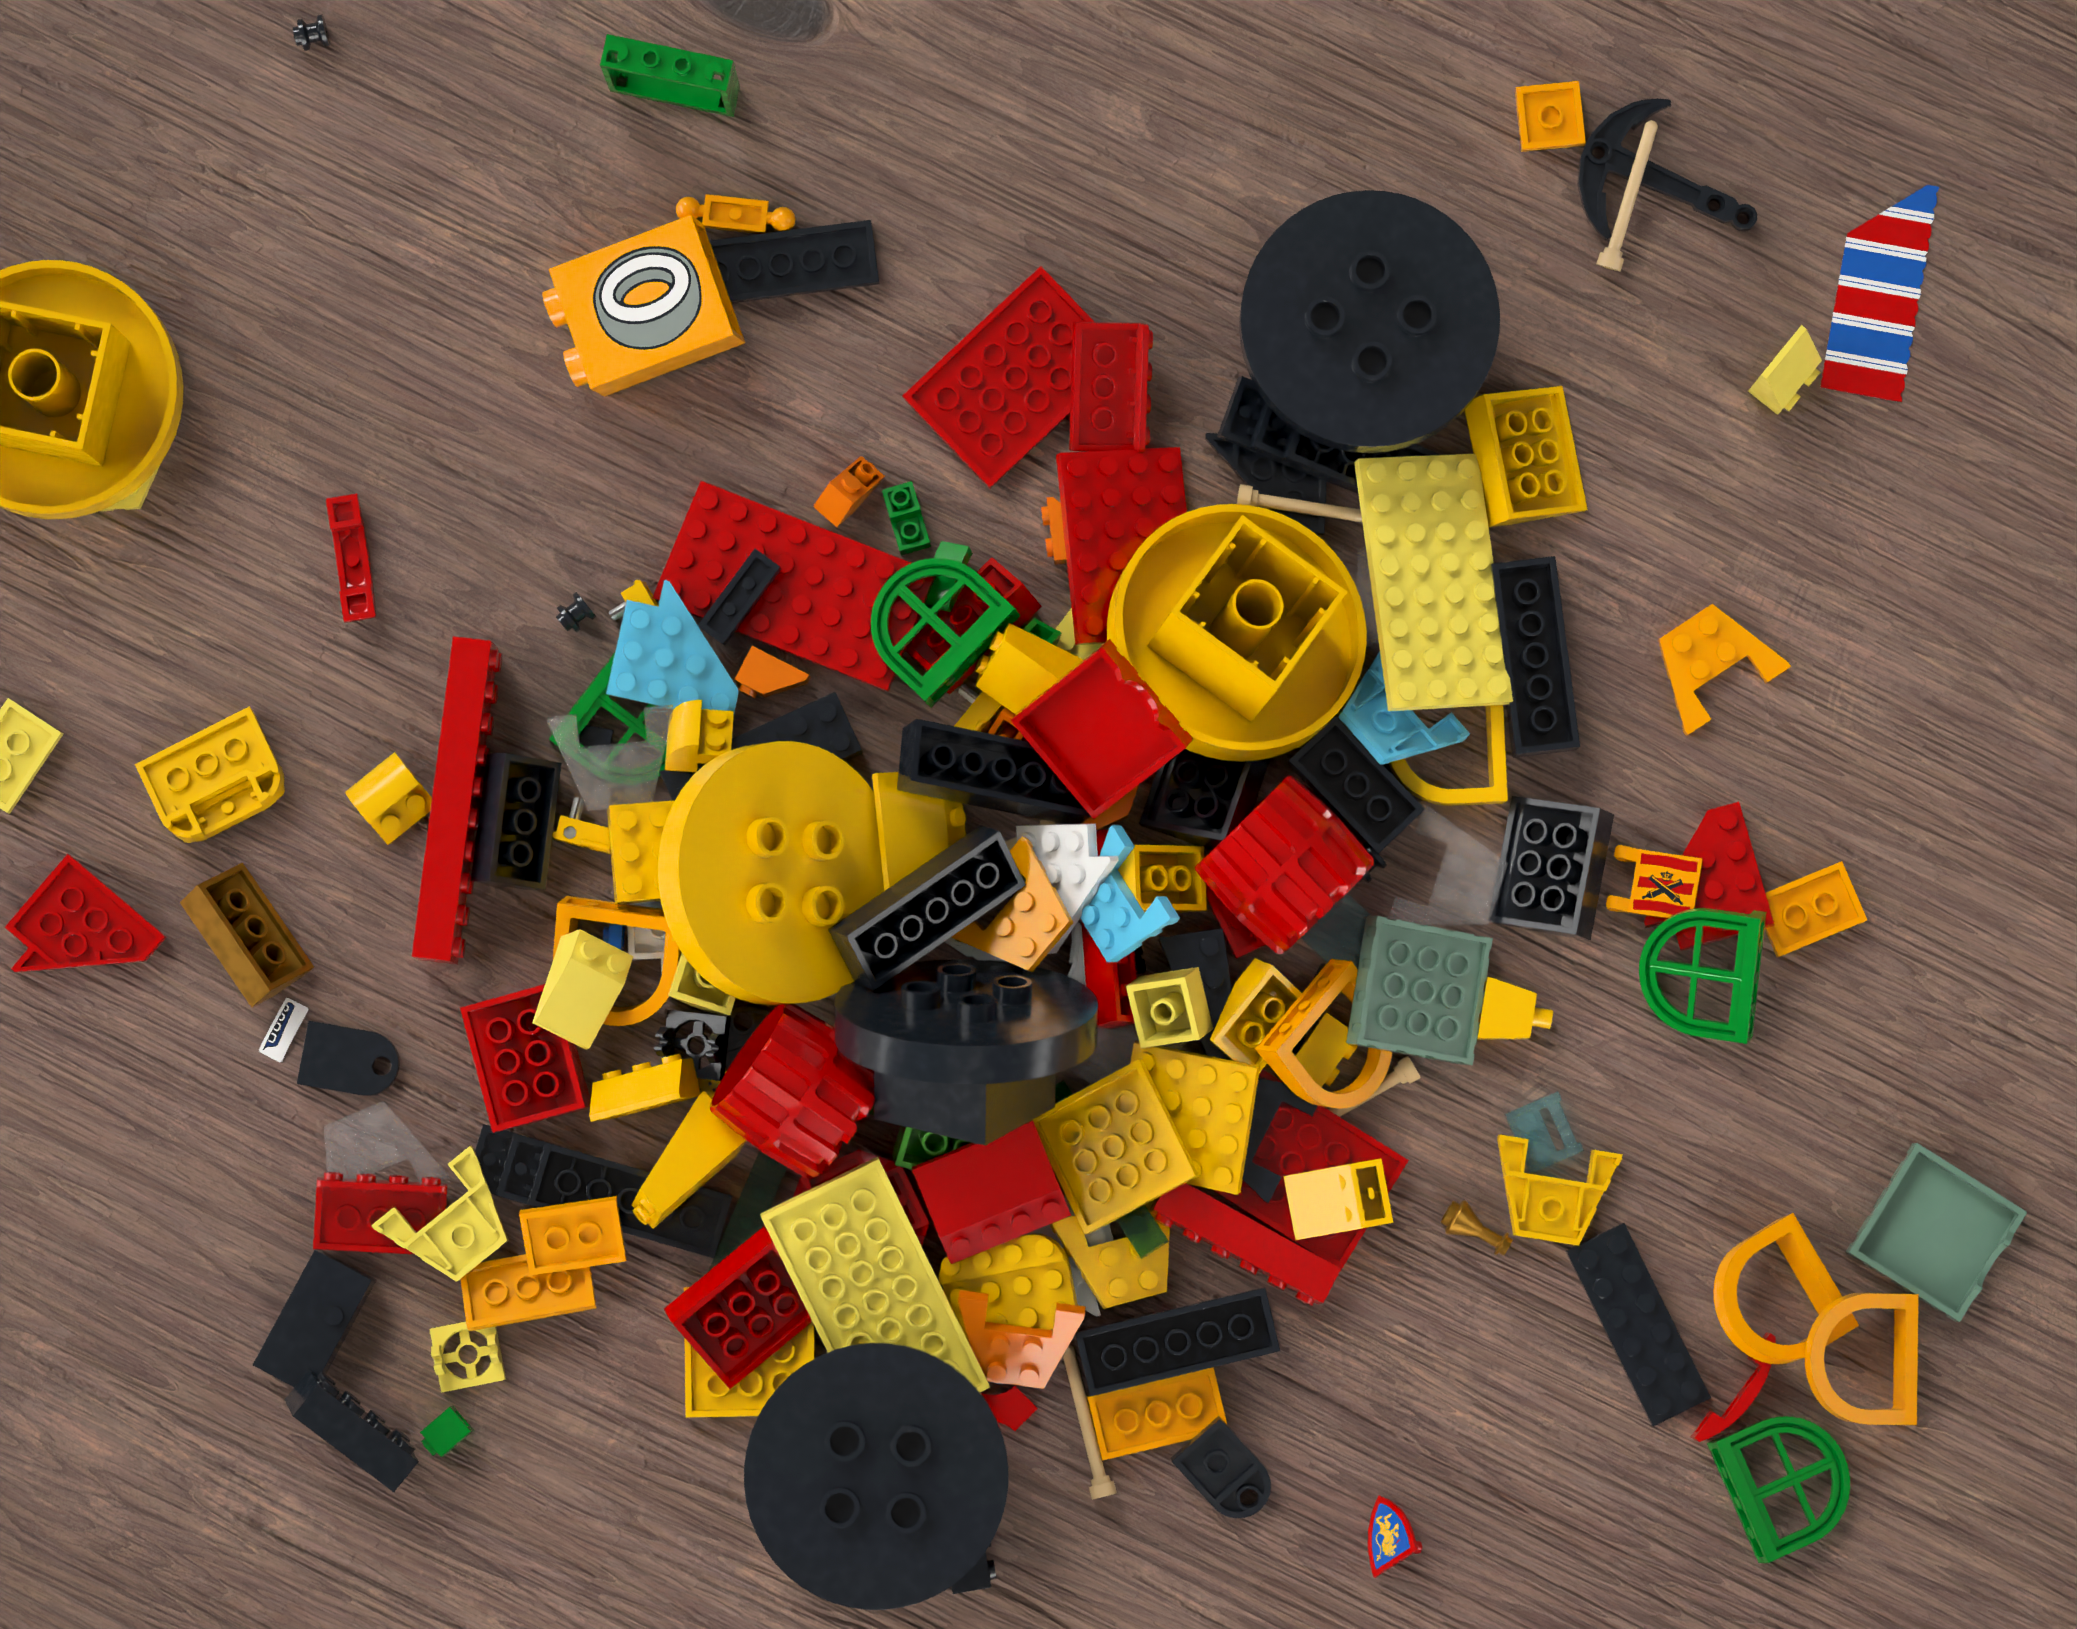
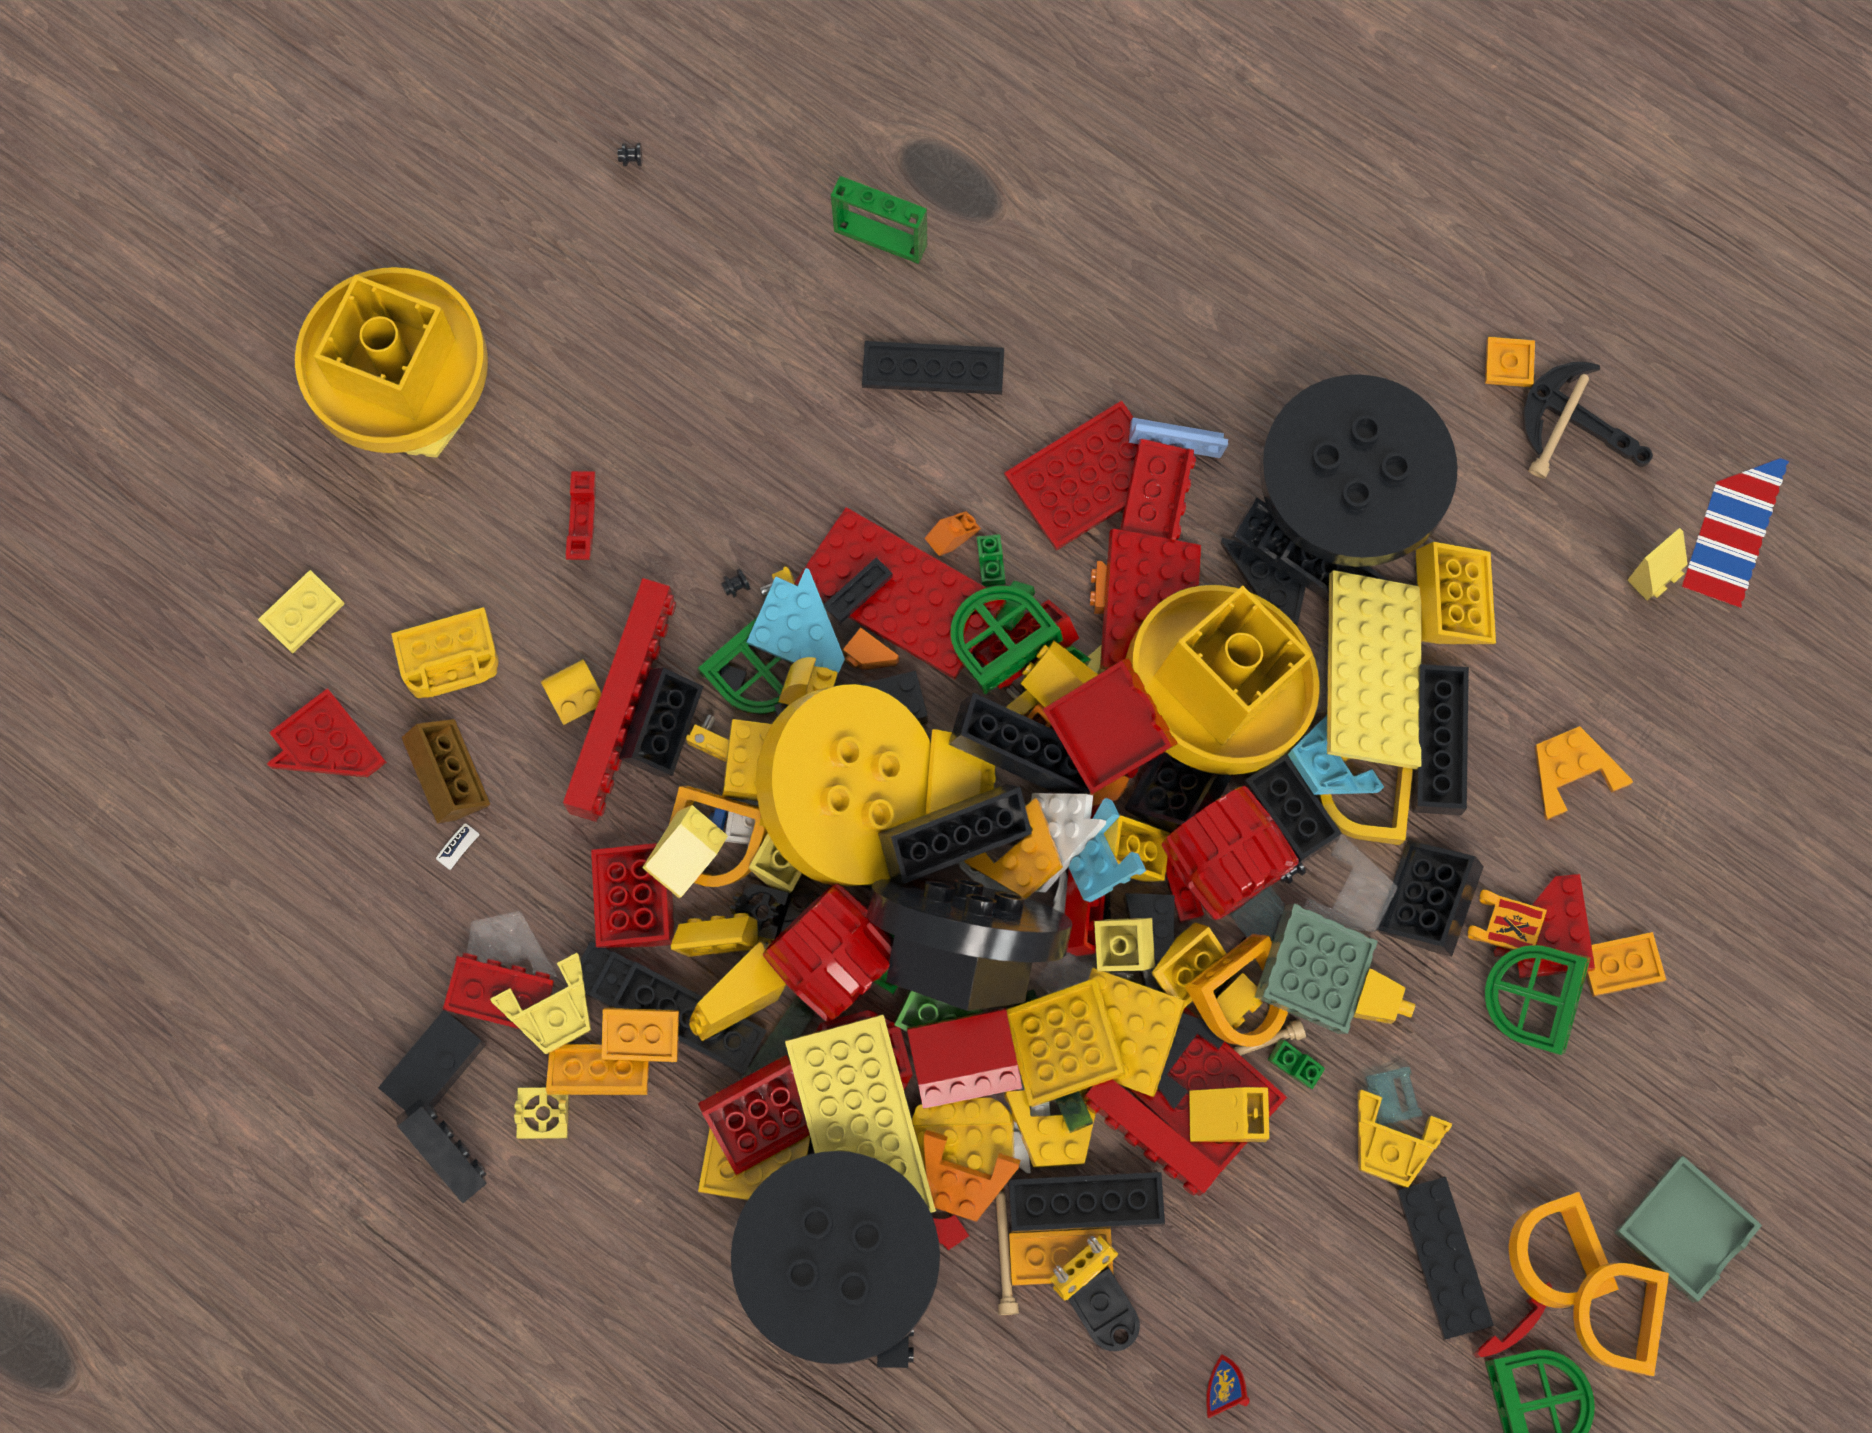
camera: 10 degrees right, 10 degrees down
(345, 1059) = (498, 875): black tile -> none
(445, 1432) = (513, 1168): green brick -> none
(614, 771) = (742, 698): clear wing -> none
(643, 307) = (828, 376): light orange brick -> none
(736, 214) = (907, 327): light orange plate -> none
(1124, 305) = (1202, 441): none -> light blue fence
(1187, 1424) = (1082, 1267): none -> yellow piece
(1248, 496) = (1284, 601): tan piece -> none
(1413, 1114) = (1296, 1064): none -> green slope
(1463, 1221) = (1320, 1151): pearl gold piece -> none

